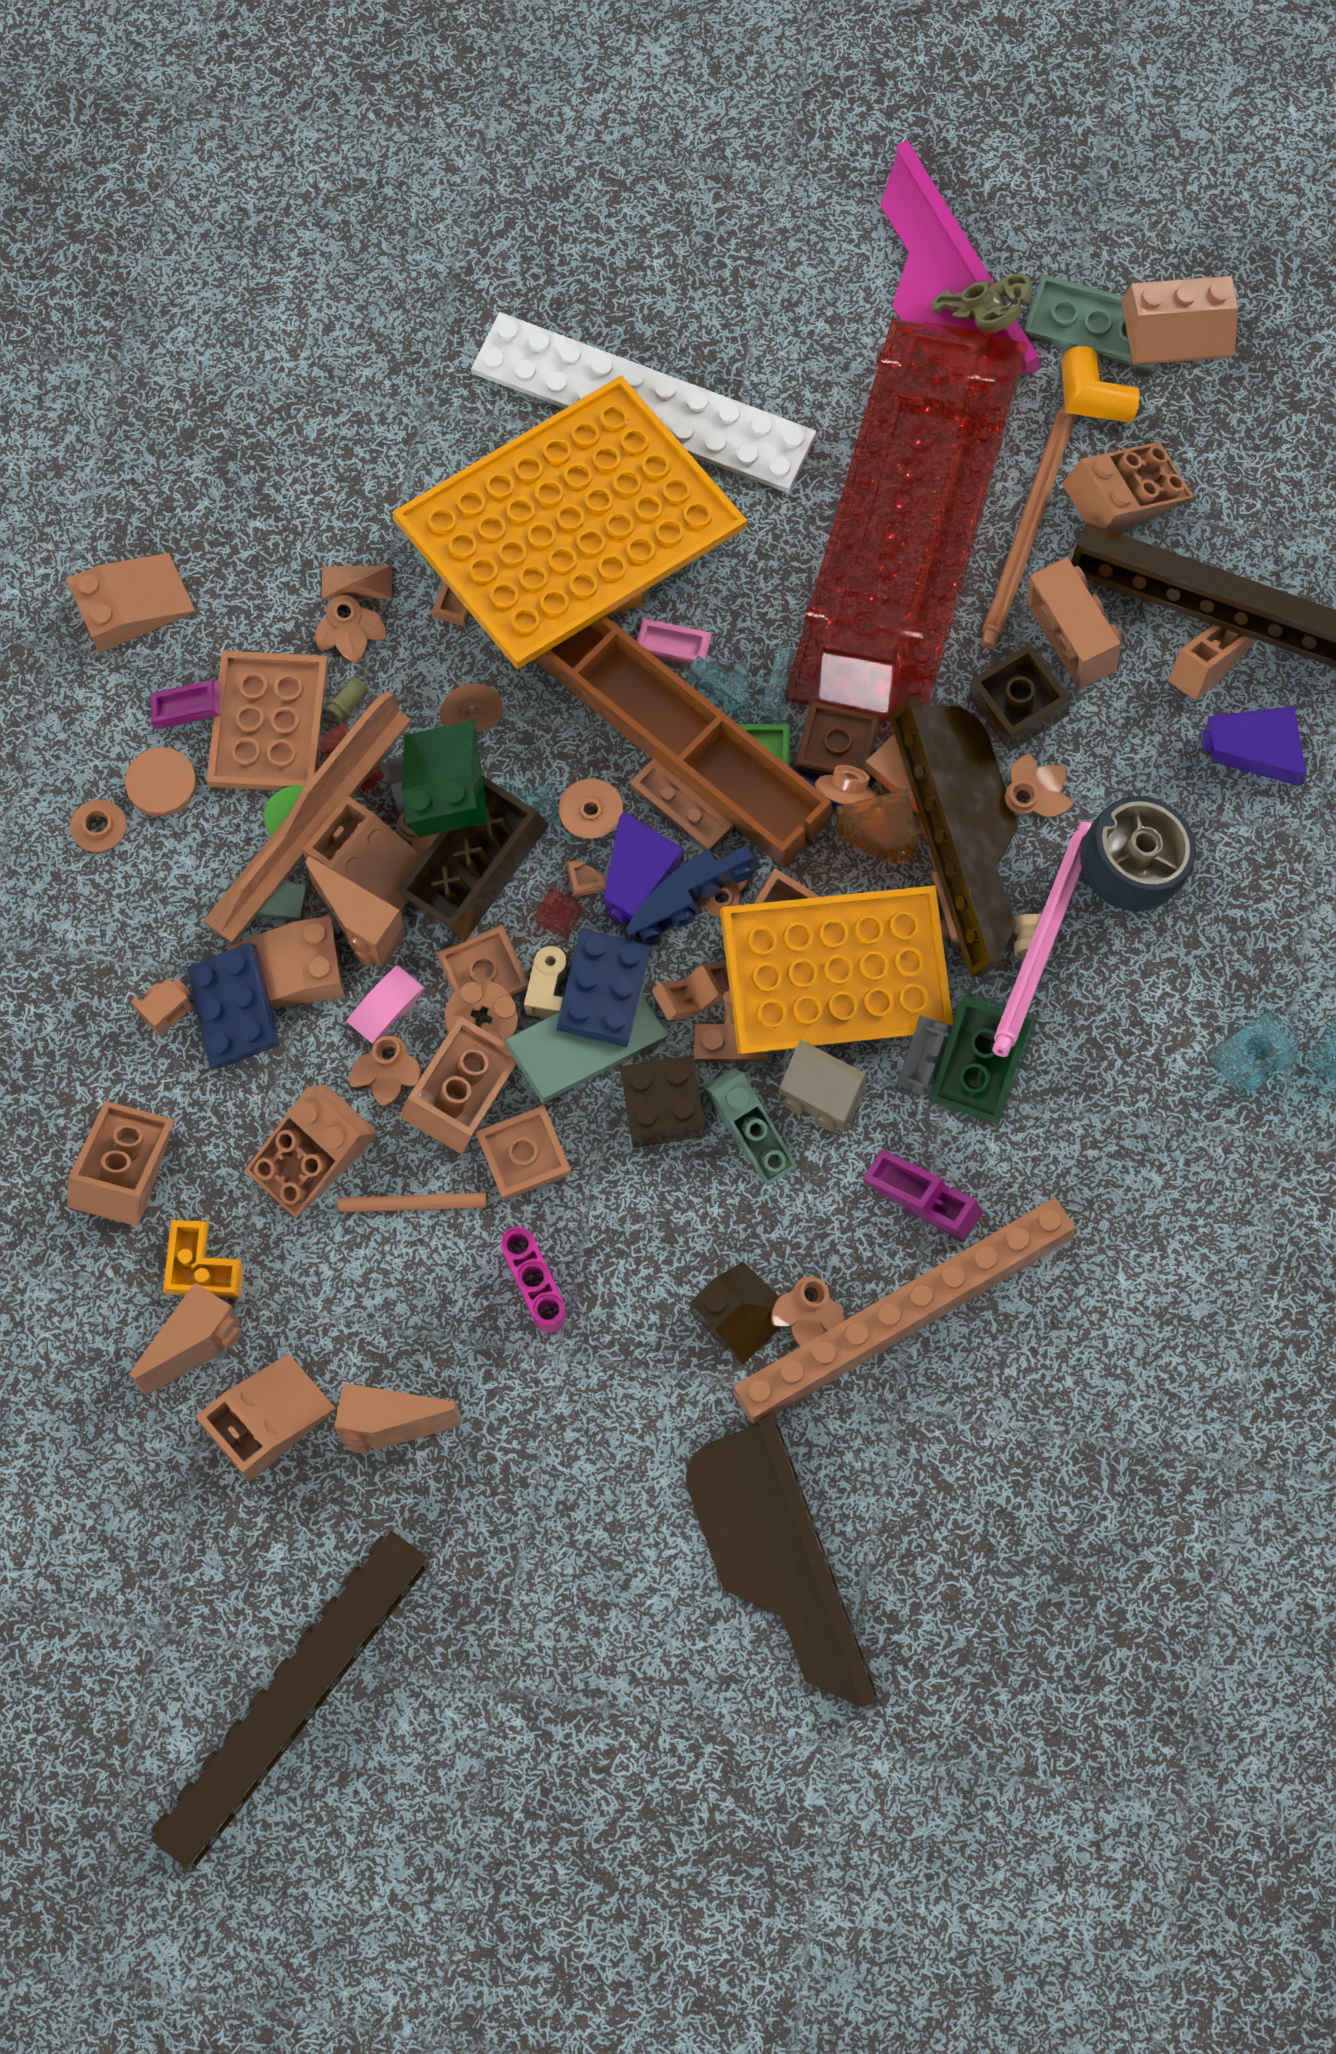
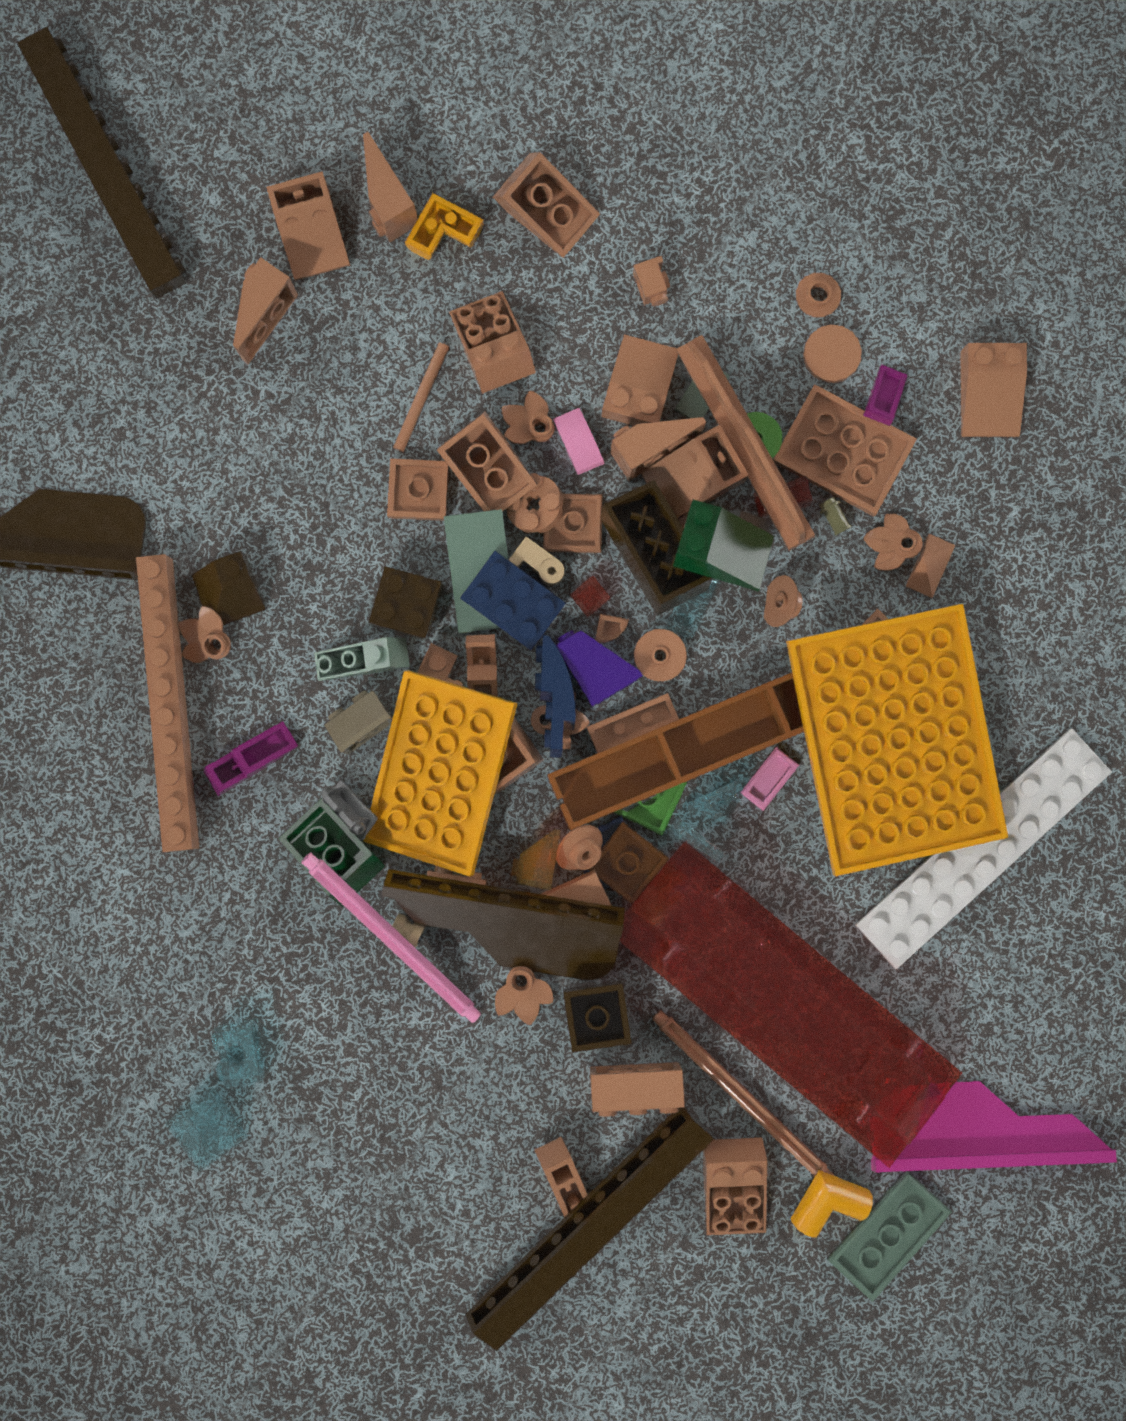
camera: 105 degrees right, 15 degrees up
(233, 1006) = (627, 331): dark blue plate -> none
(529, 1263) = (306, 447): dark pink beam -> none
(986, 302) = (939, 1153): olive animal -> none
(1138, 853) = (433, 1021): wheel -> none
(1181, 320) = (856, 1302): nougat slope -> none
(1257, 743) = (477, 1180): dark purple slope -> none

